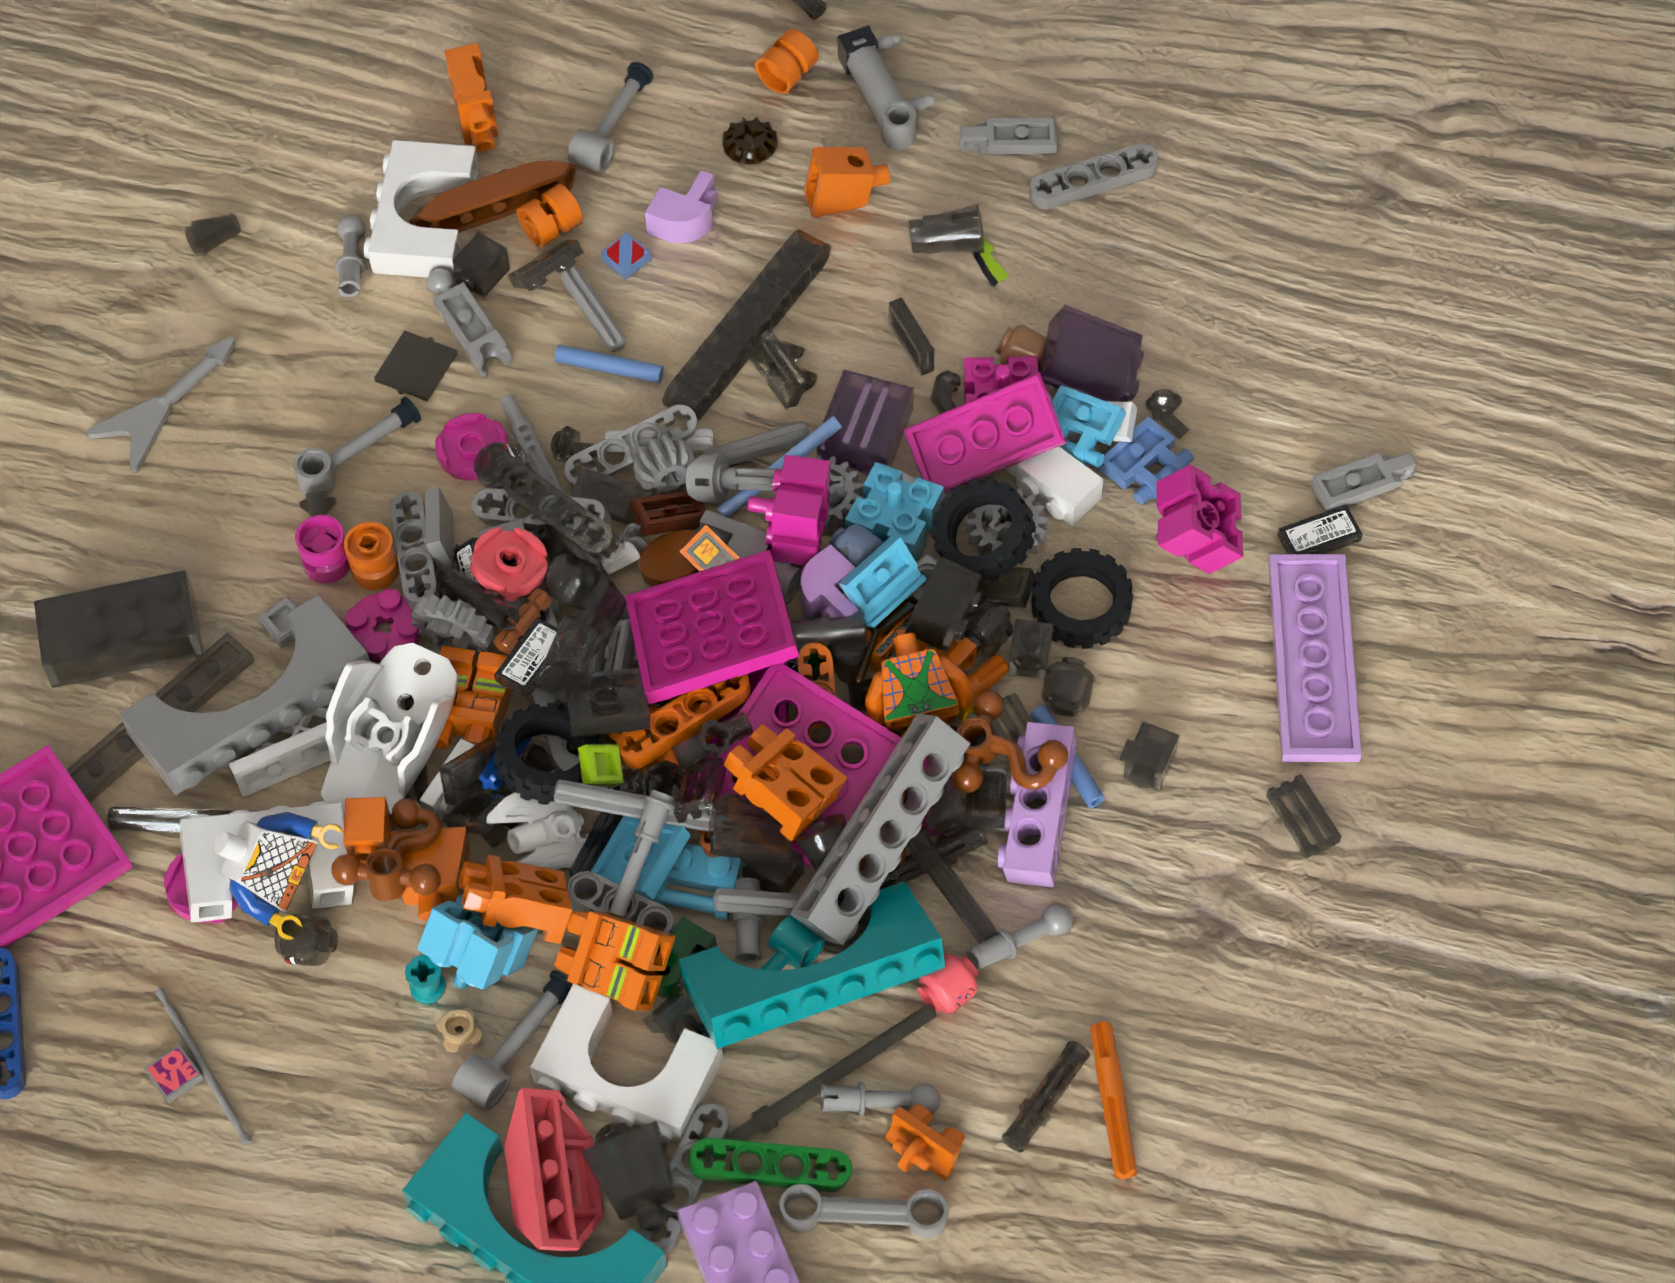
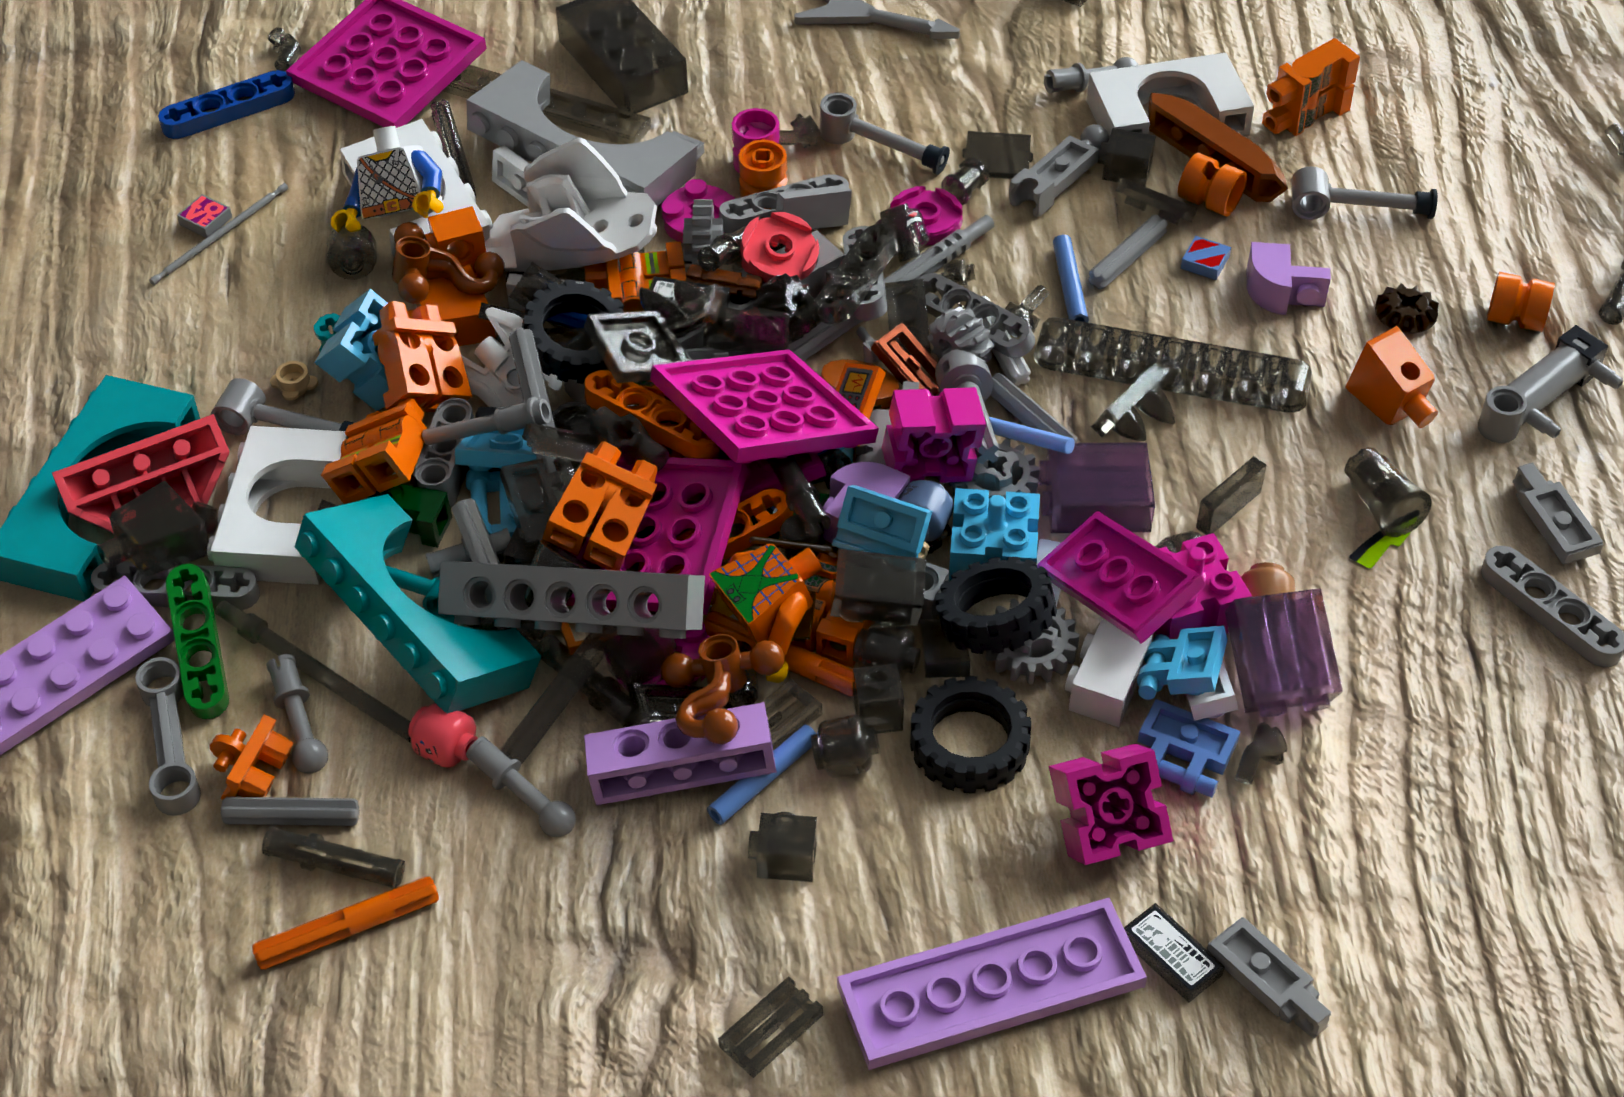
camera: 70 degrees right, 10 degrees down
(441, 398) = (966, 179): none -> clear smoke bush
(601, 765) = (567, 363): lime tile -> none
(624, 556) = (844, 341): white tile -> none
(642, 408) = (1029, 305): none -> clear smoke plate
(982, 1124) = (290, 811): none -> light grey axle

